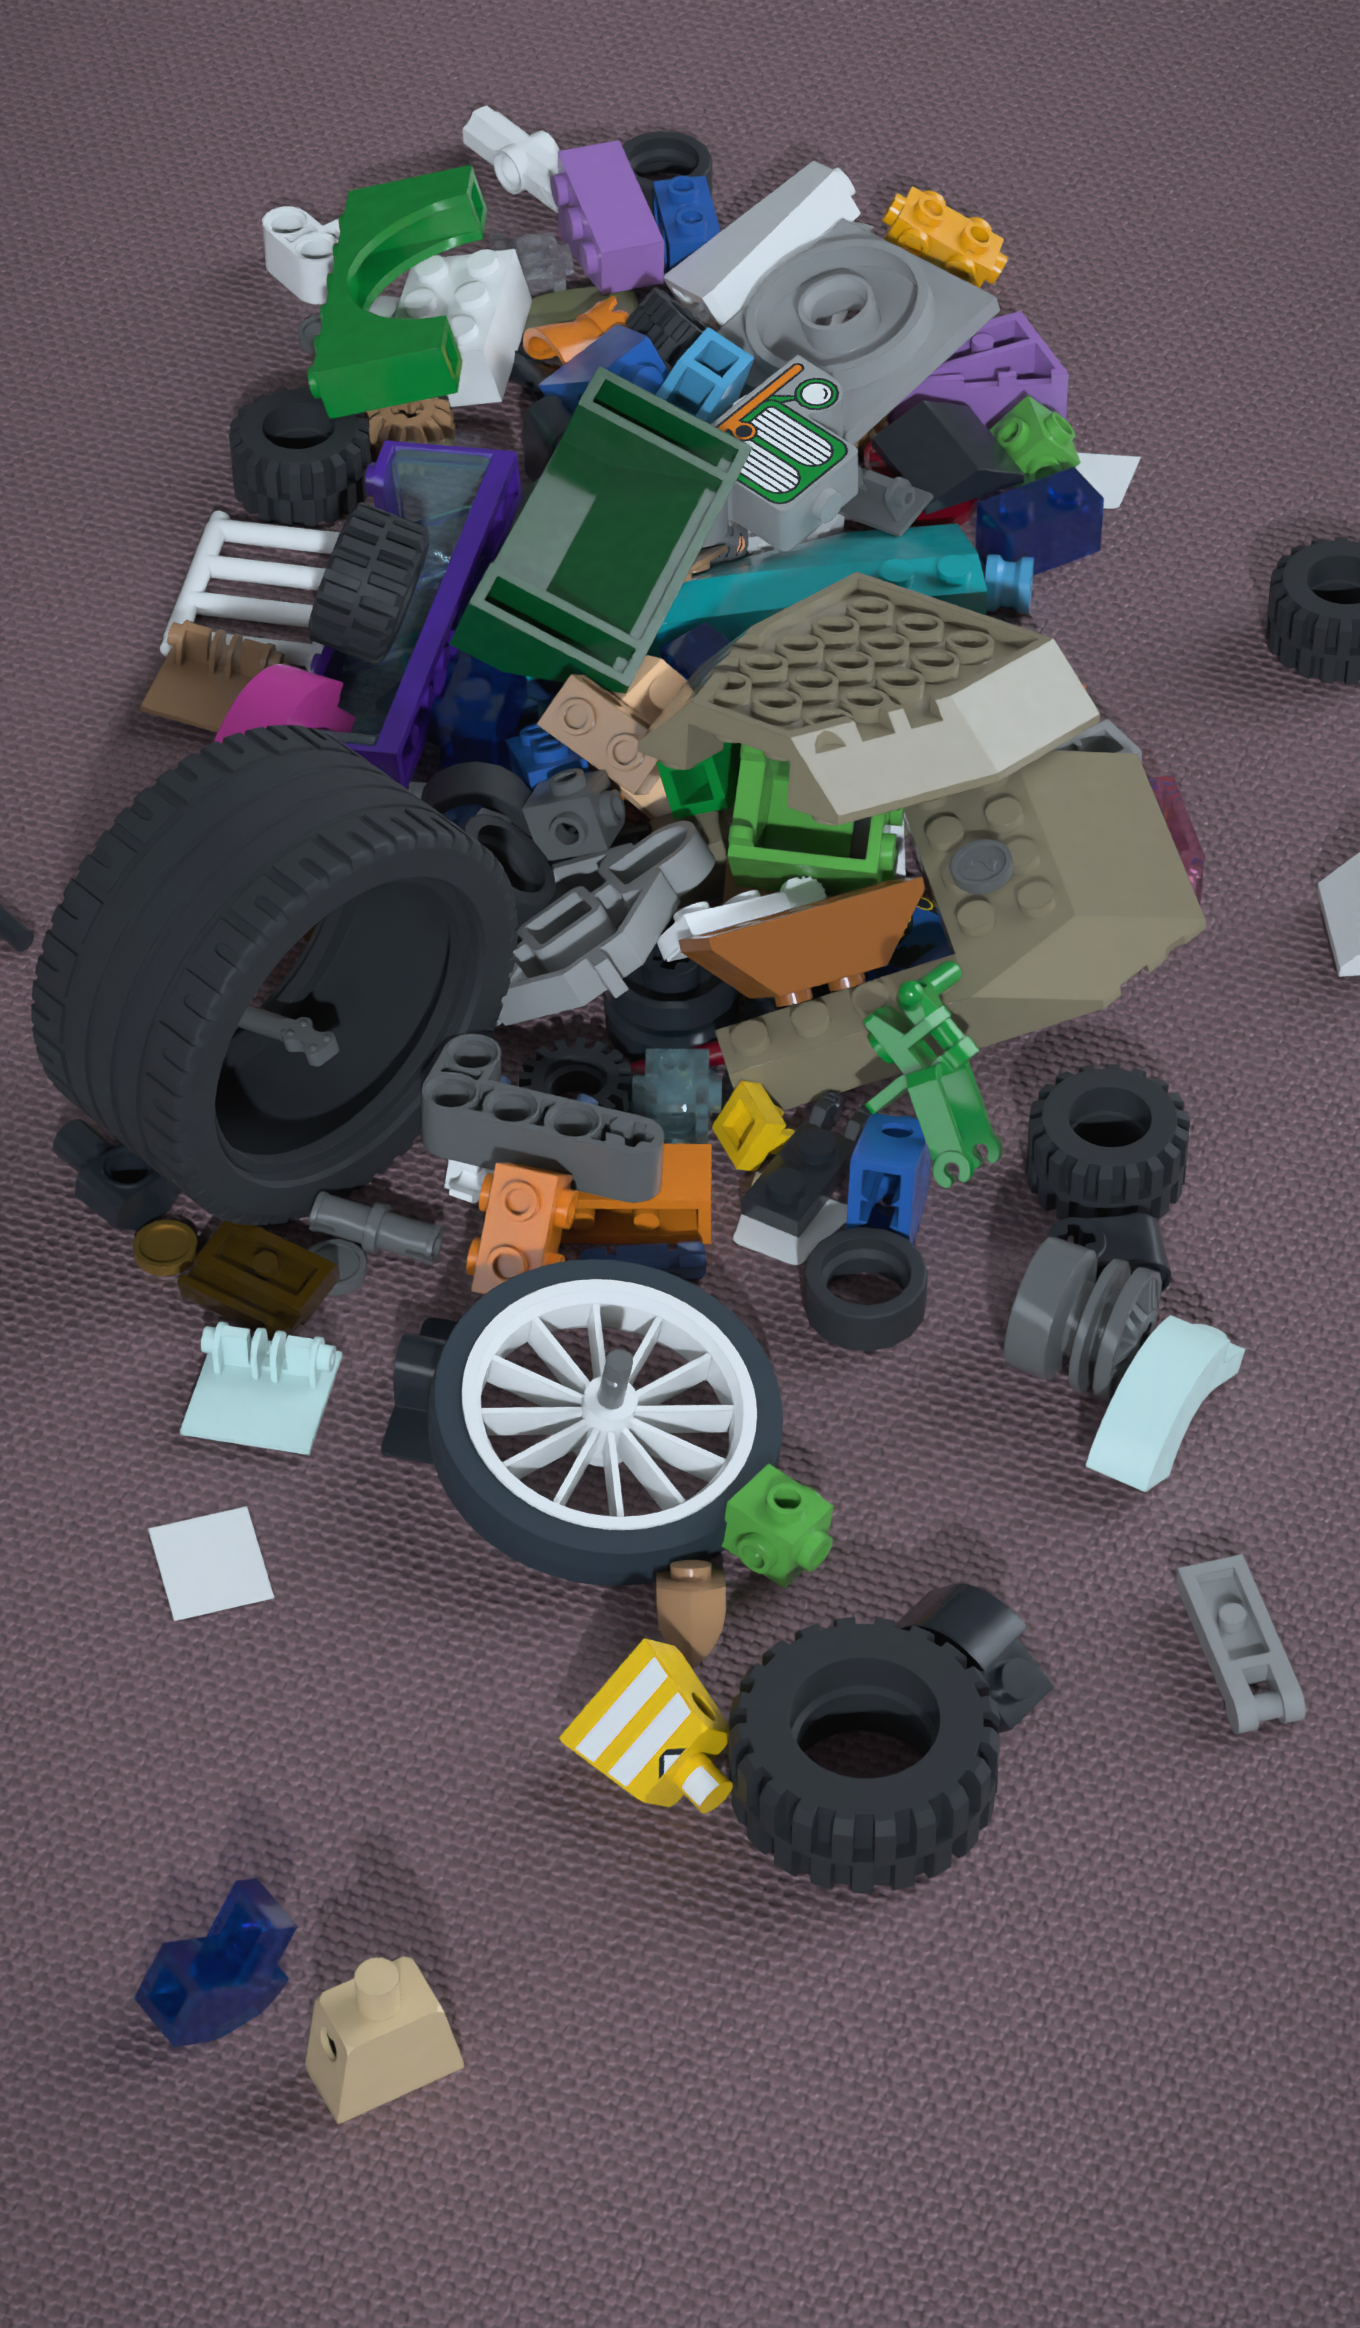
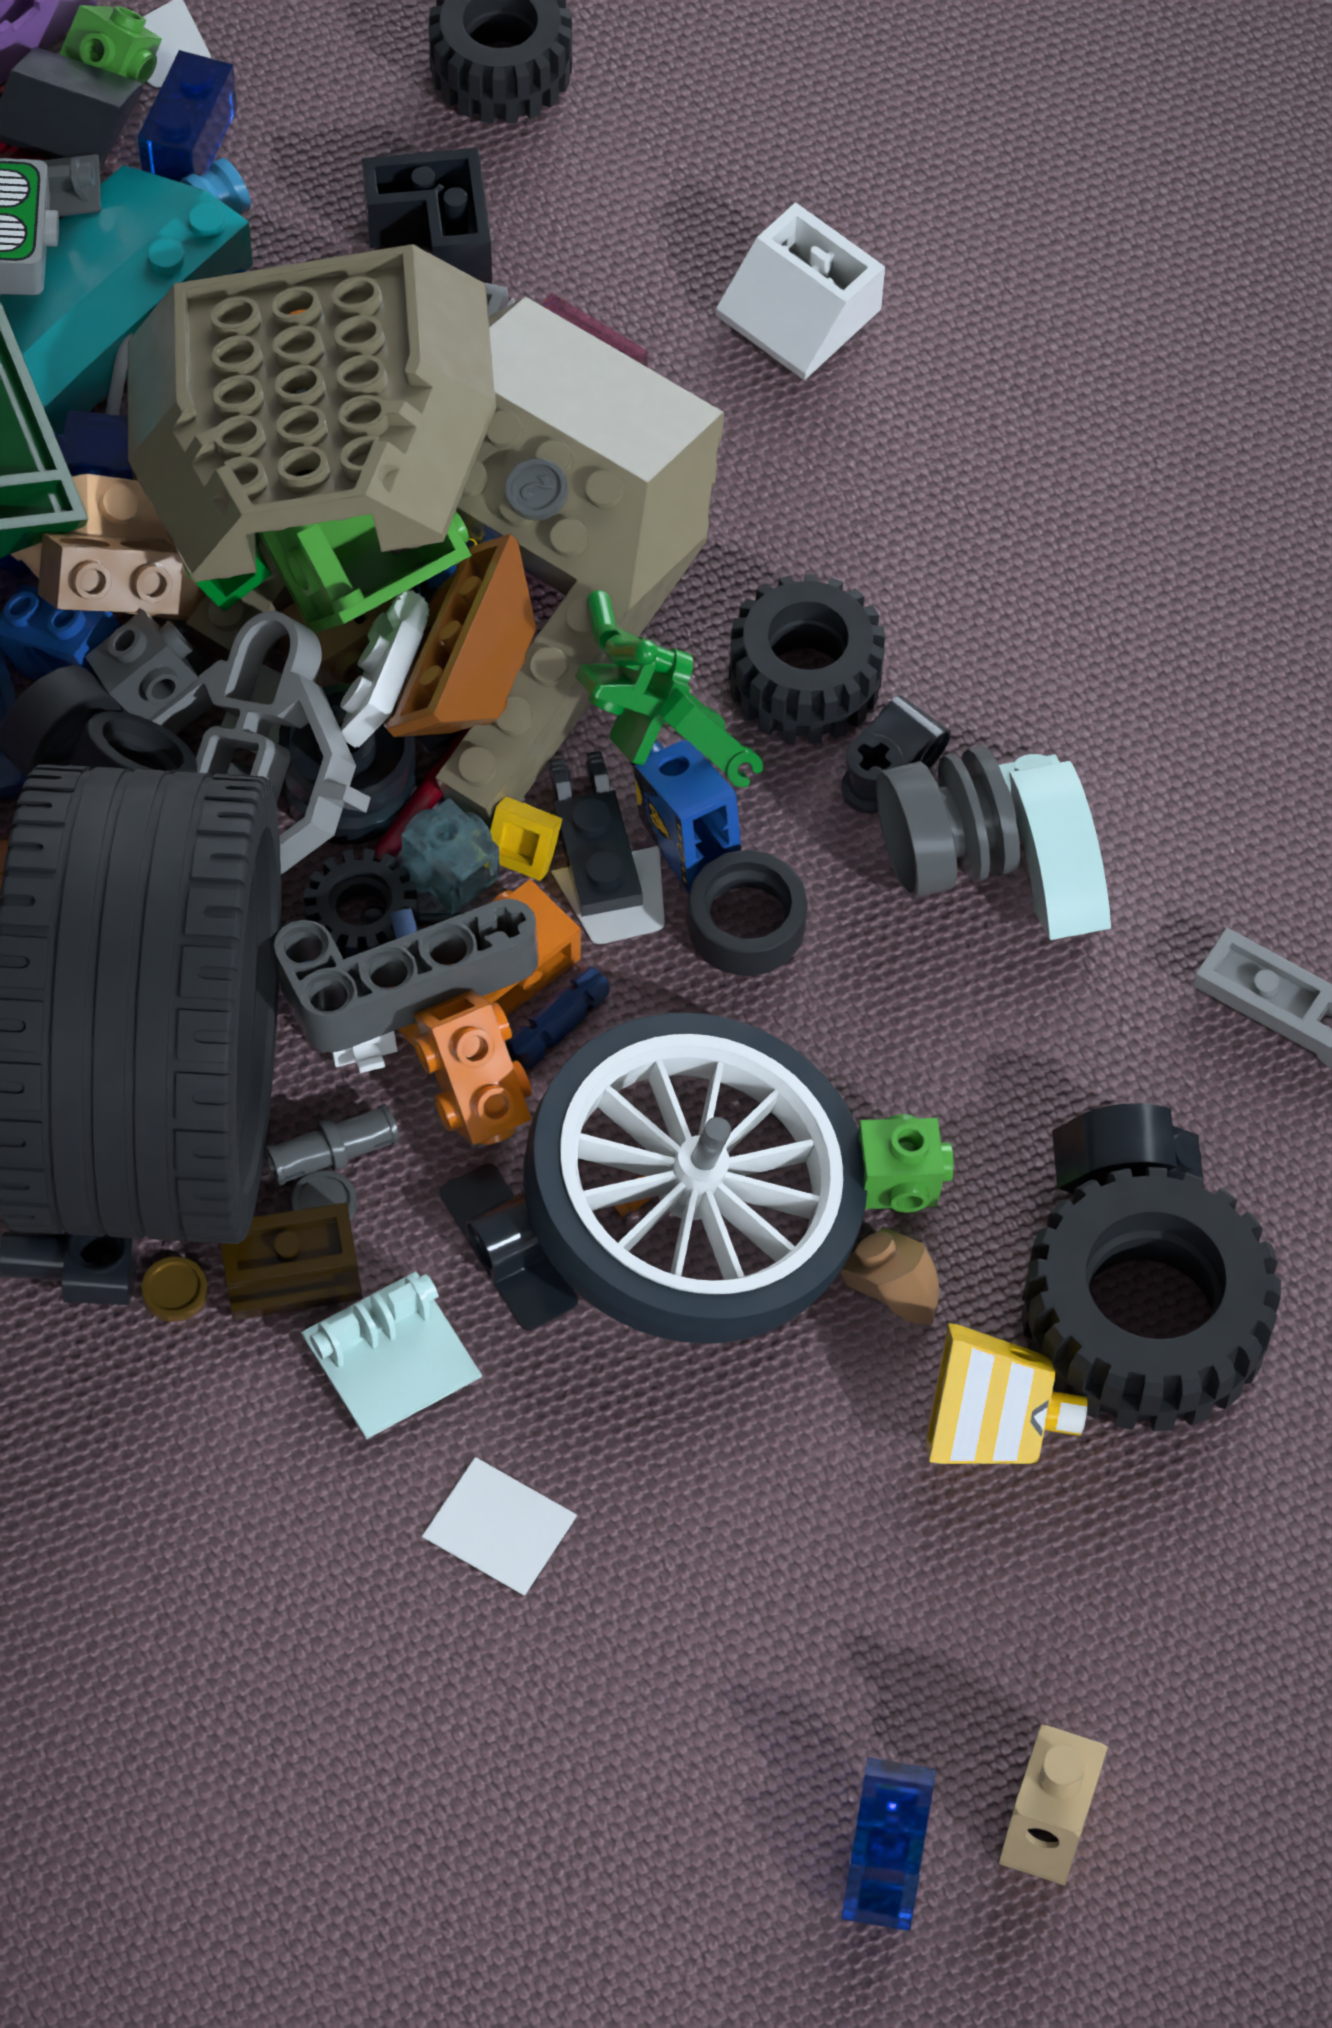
camera: 45 degrees left, 15 degrees up
(1159, 682) = (431, 201): none -> black brick

